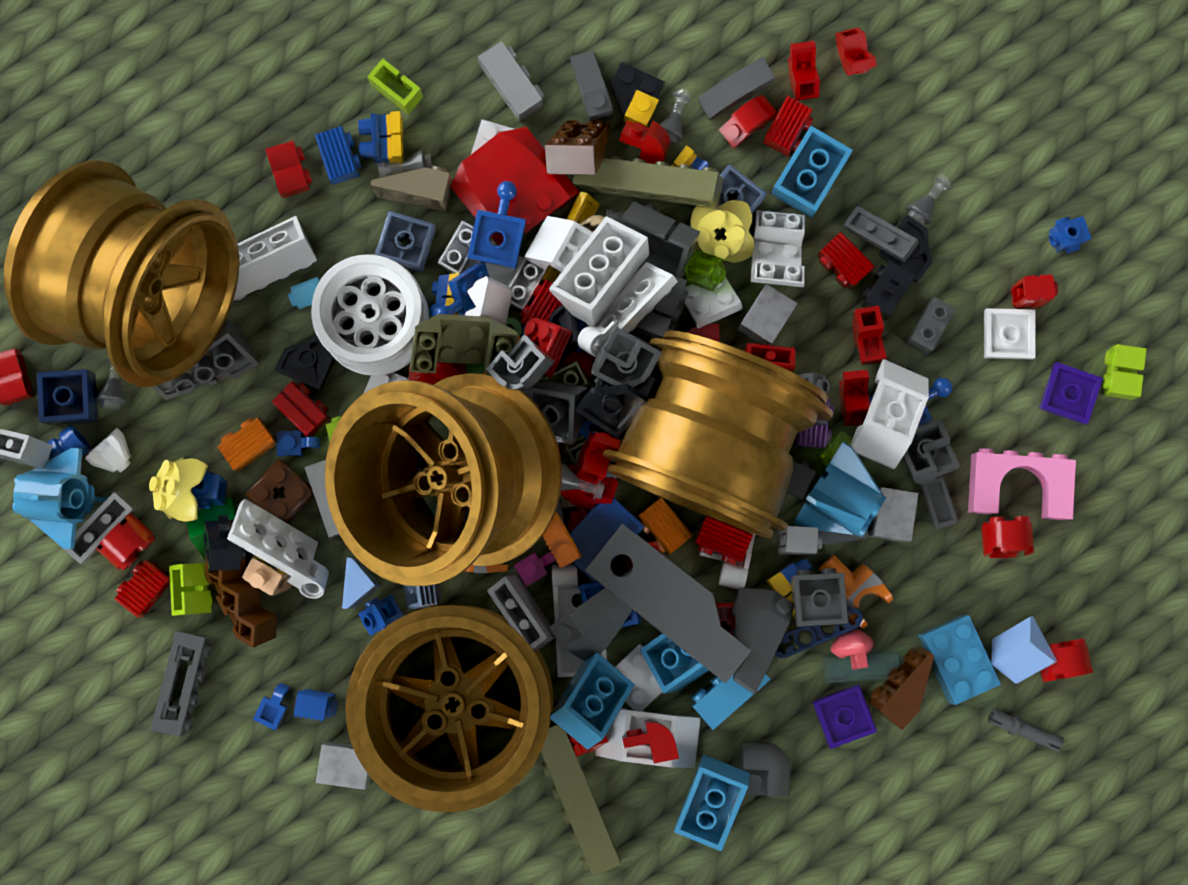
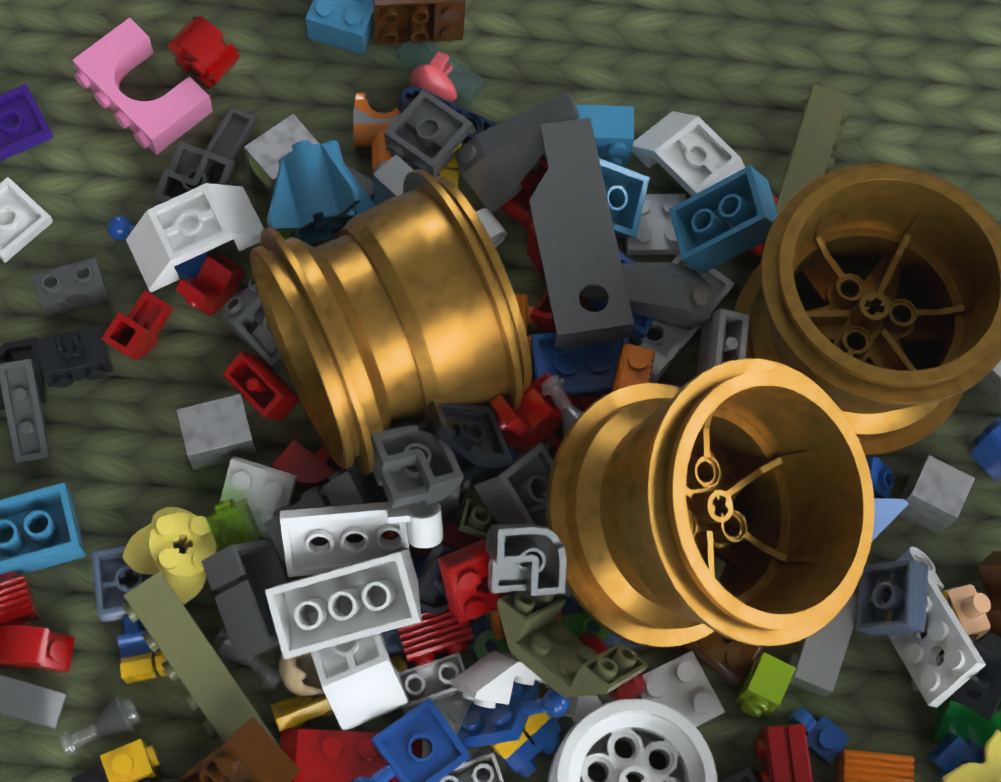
camera: 145 degrees left, 15 degrees down
(281, 476) = (866, 711): reddish brown brick -> none
(309, 544) = (892, 598): none -> sand blue brick
(333, 637) = (935, 495): none -> flat silver piece
(652, 140) = (155, 718): red brick -> none
(659, 738) = (692, 143): red brick -> none
(712, 802) = (684, 62): dark azure brick -> none
(768, 769) = (610, 59): dark grey brick -> none
(778, 249) = (146, 480): white slope -> none
(844, 716) = (496, 42): dark purple plate -> none
(845, 261) = (85, 419): red brick -> none

